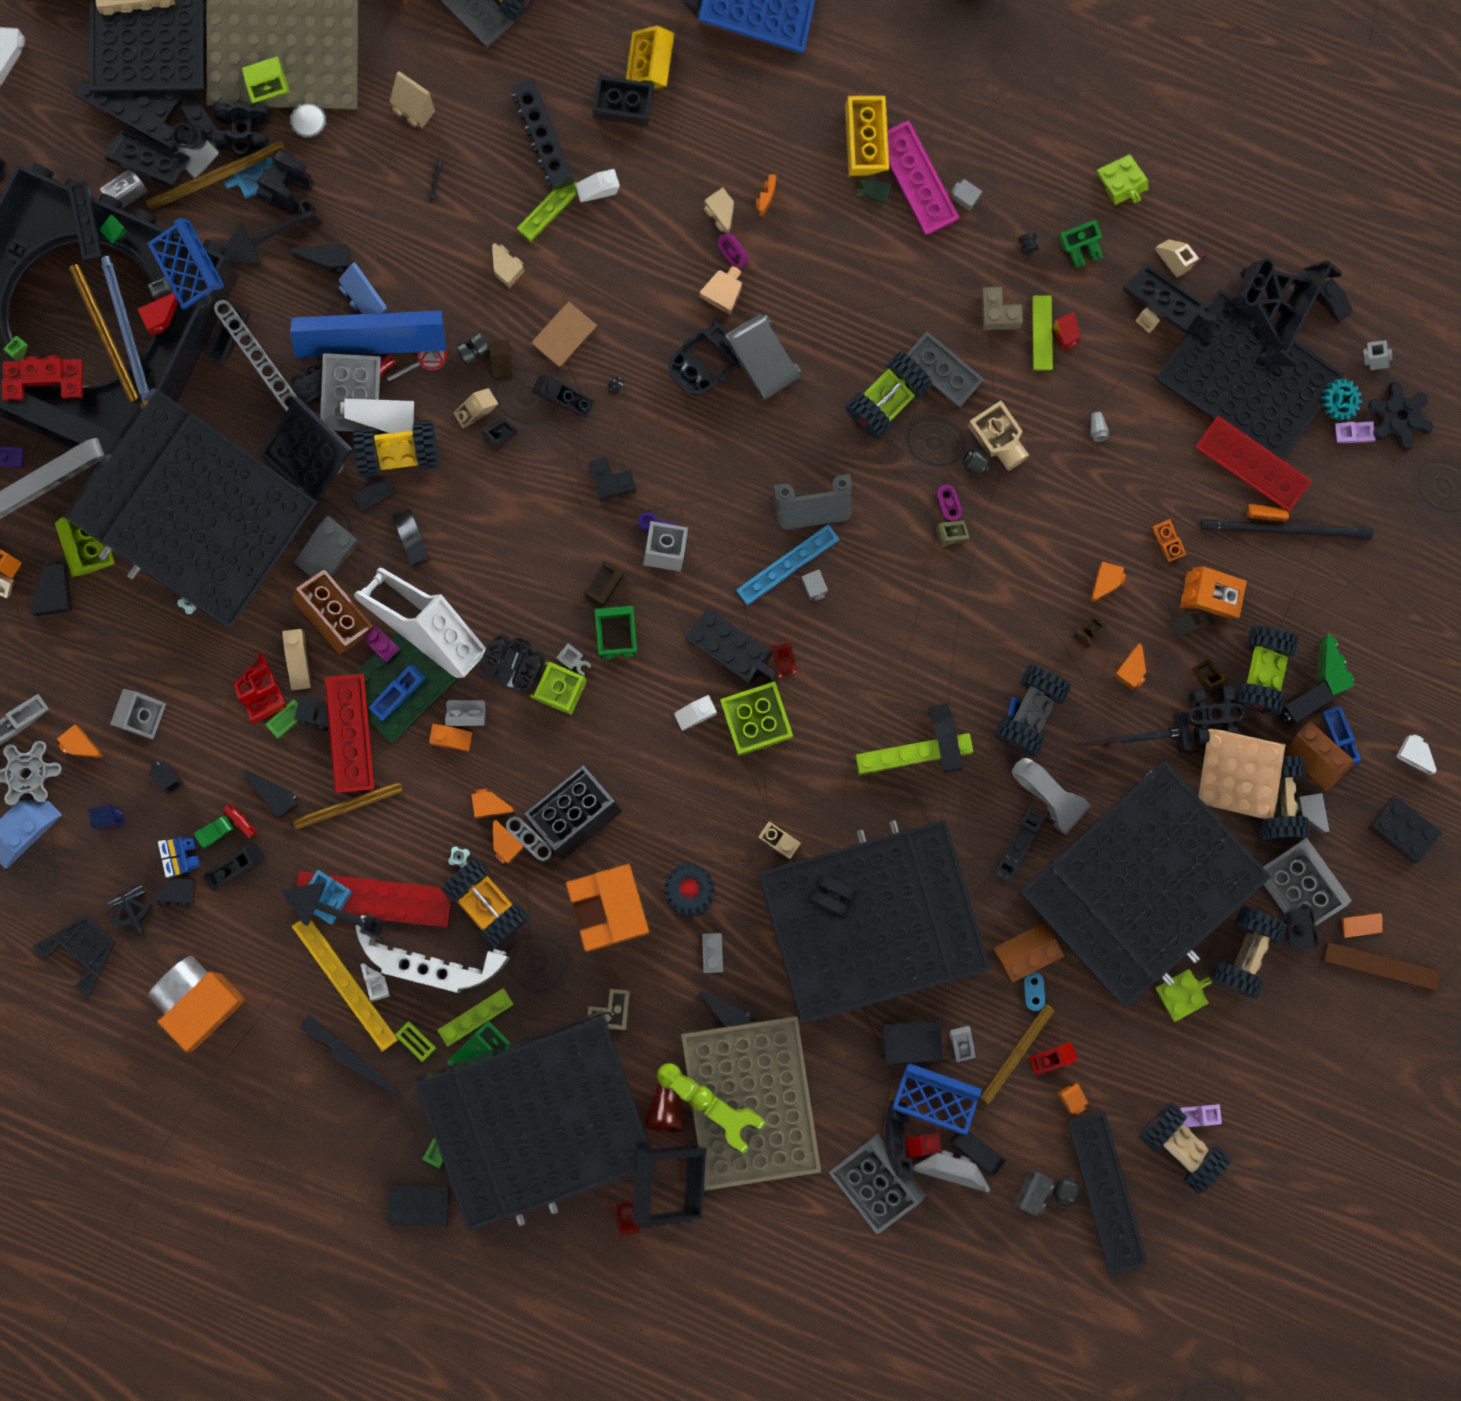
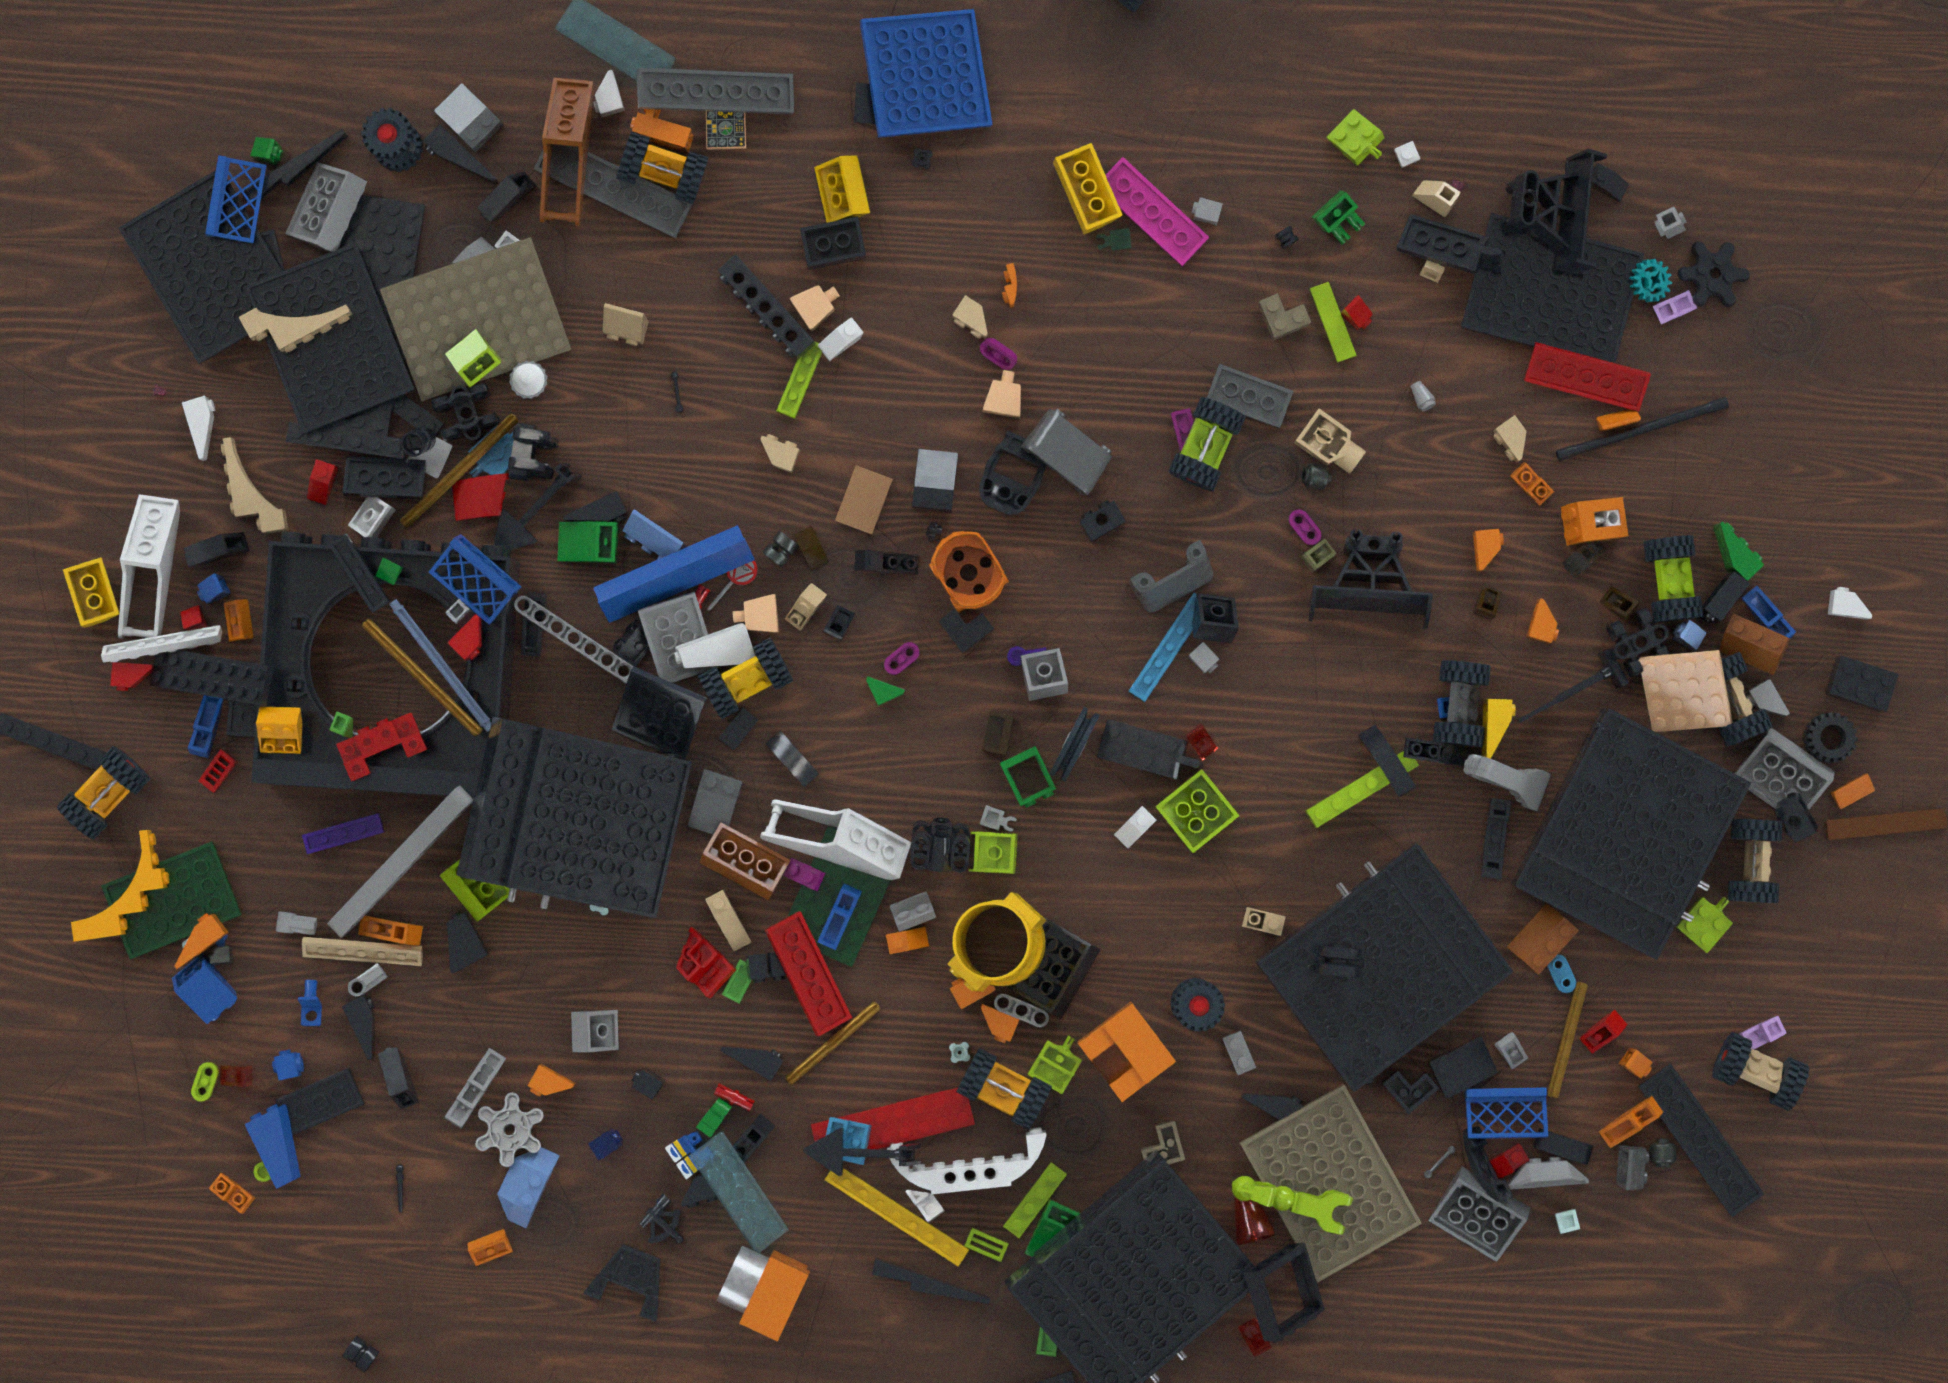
camera: 15 degrees left, 5 degrees up
(18, 130) = (246, 498): none -> tan arch
(91, 141) = (321, 481): none -> red slope
(208, 907) = (739, 1192): none -> clear light blue plate
(224, 205) = (479, 496): none -> red slope
(305, 280) = (588, 542): none -> green slope
(431, 399) = (759, 614): none -> light nougat torso
(515, 508) = (883, 691): none -> green slope
(541, 900) = (1056, 1065): none -> lime plate
(542, 483) = (901, 658): none -> magenta plate
(551, 793) = (1033, 922): none -> yellow cylinder
(586, 149) = (814, 305): none -> light nougat torso
(633, 341) = (935, 480): none -> slope
(643, 405) = (974, 549): none -> orange piece
(667, 615) = (1074, 744): none -> black wheel
(729, 52) = (918, 153): none -> black plate
(761, 438) = (1094, 530): none -> black brick
(838, 553) = (1215, 618): none -> black slope
(844, 1129) = (1428, 1173): none -> dark grey hinge
(853, 1049) = (1409, 1095): none -> black brick
(874, 370) = (1182, 424): none -> magenta plate
(956, 1221) = (1567, 1221): none -> light aqua plate
(985, 587) = (1372, 599): none -> black piece
(991, 745) = (1435, 752): none -> black slope
(1048, 1151) = (1631, 1122): none -> orange slope
(1060, 734) = (1496, 719): none -> yellow slope
(1163, 211) = (1407, 154): none -> white plate
(1166, 490) = (1512, 437): none -> tan slope
(1262, 726) = (1689, 634): none -> light blue slope
(1373, 861) = (1846, 733): none -> black tyre

